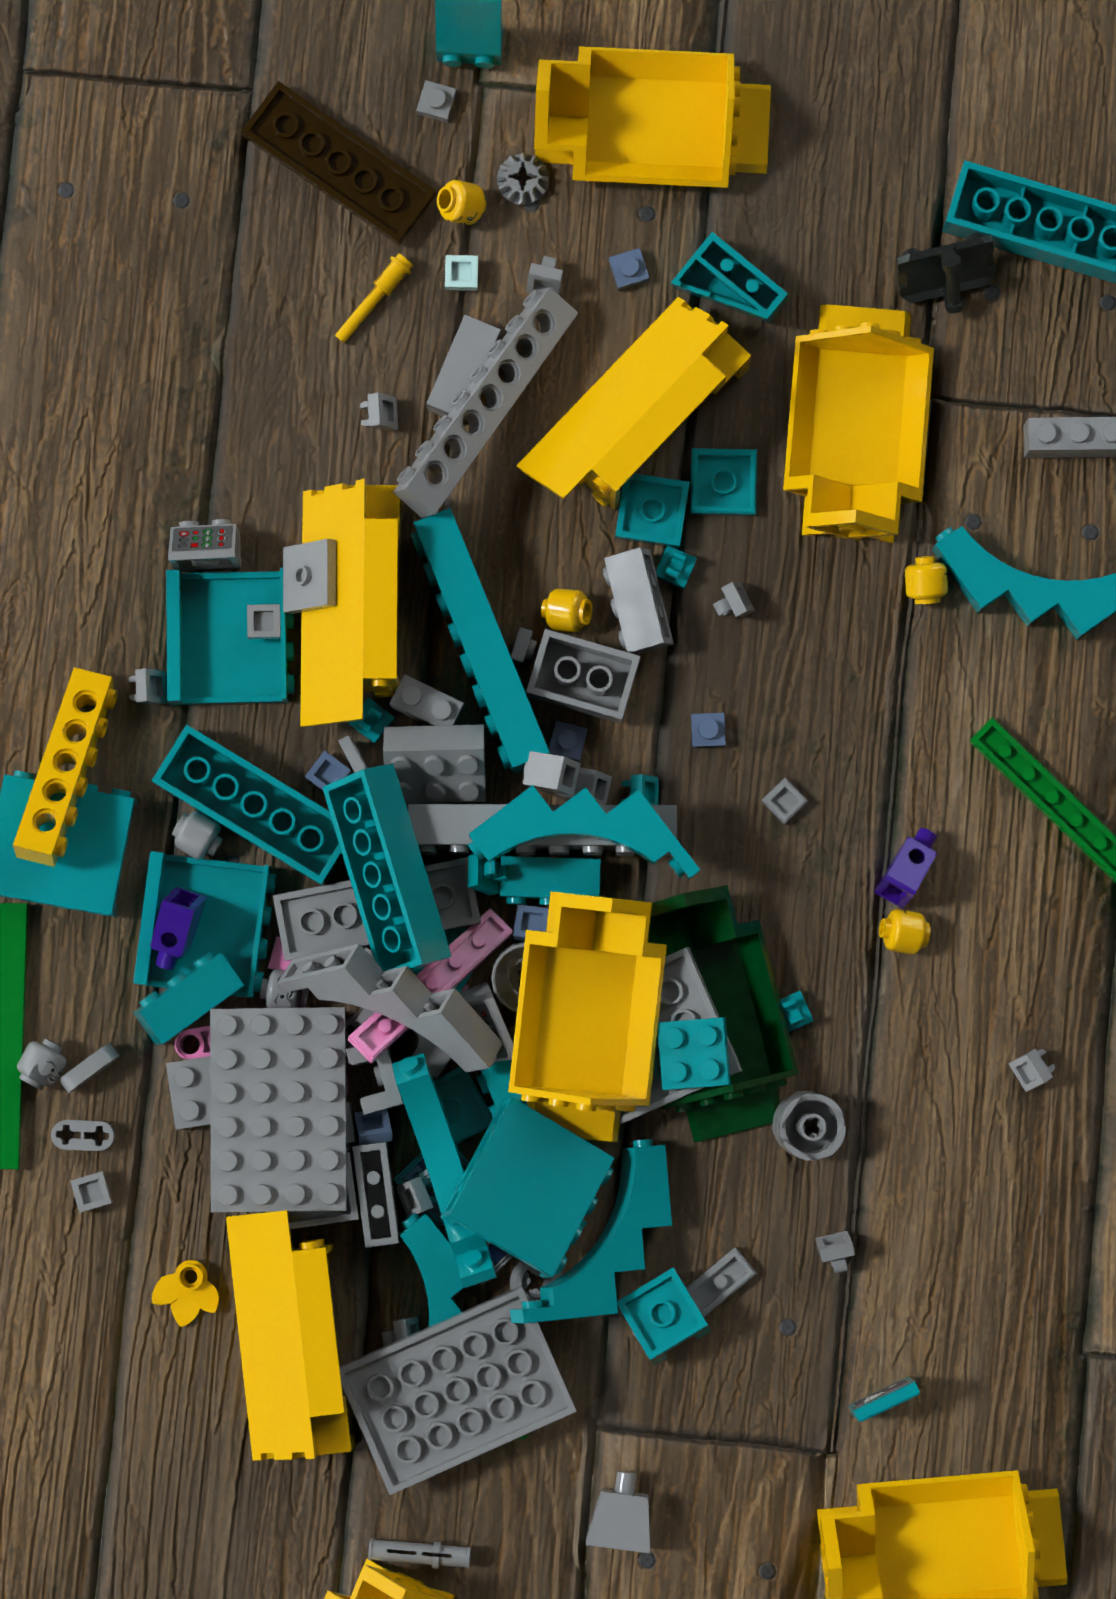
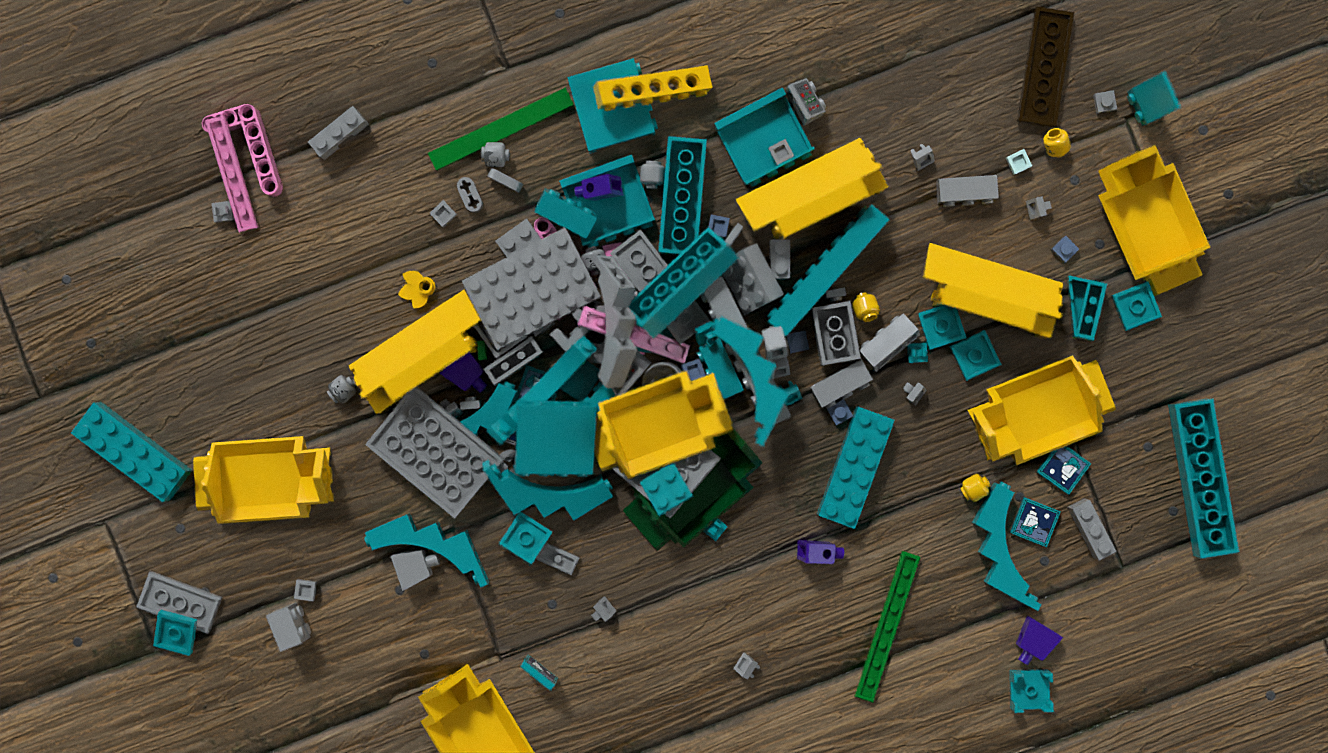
camera: 60 degrees right, 5 degrees up
(150, 686) = (717, 110): light grey tile -> none
(284, 1491) = (341, 389): none -> light grey head
(309, 576) = (816, 164): light grey plate -> none
(335, 1236) = (482, 350): none -> green tile
(358, 1280) = (465, 373): none -> dark purple torso
(373, 721) = (757, 236): teal tile -> none
(373, 1127) = (546, 341): sand blue plate -> none
(379, 1551) = (354, 493): light grey pin -> none
(383, 285) = (991, 124): yellow pin -> none
(409, 1296) = (471, 403): none -> light grey plate
(415, 1196) = (522, 381): light grey tile -> none
(533, 189) = (1084, 177): light grey gear -> none
(554, 319) = (1018, 223): light grey brick -> none
(625, 1434) = (457, 549): none -> teal arch
(666, 706) = (841, 384): none -> light grey brick
(768, 205) = (1136, 306): none -> teal tile
(784, 801) = (822, 470): light grey tile -> none
(804, 747) = (855, 467): none -> teal brick
(825, 1116) = (649, 565): light grey brick -> none
(904, 931) = (785, 566): yellow head -> none
(946, 271) = (1147, 418): pearl dark grey shield -> none
(962, 434) = (1063, 468): none -> tile
(1023, 517) = (1035, 522): none -> tile

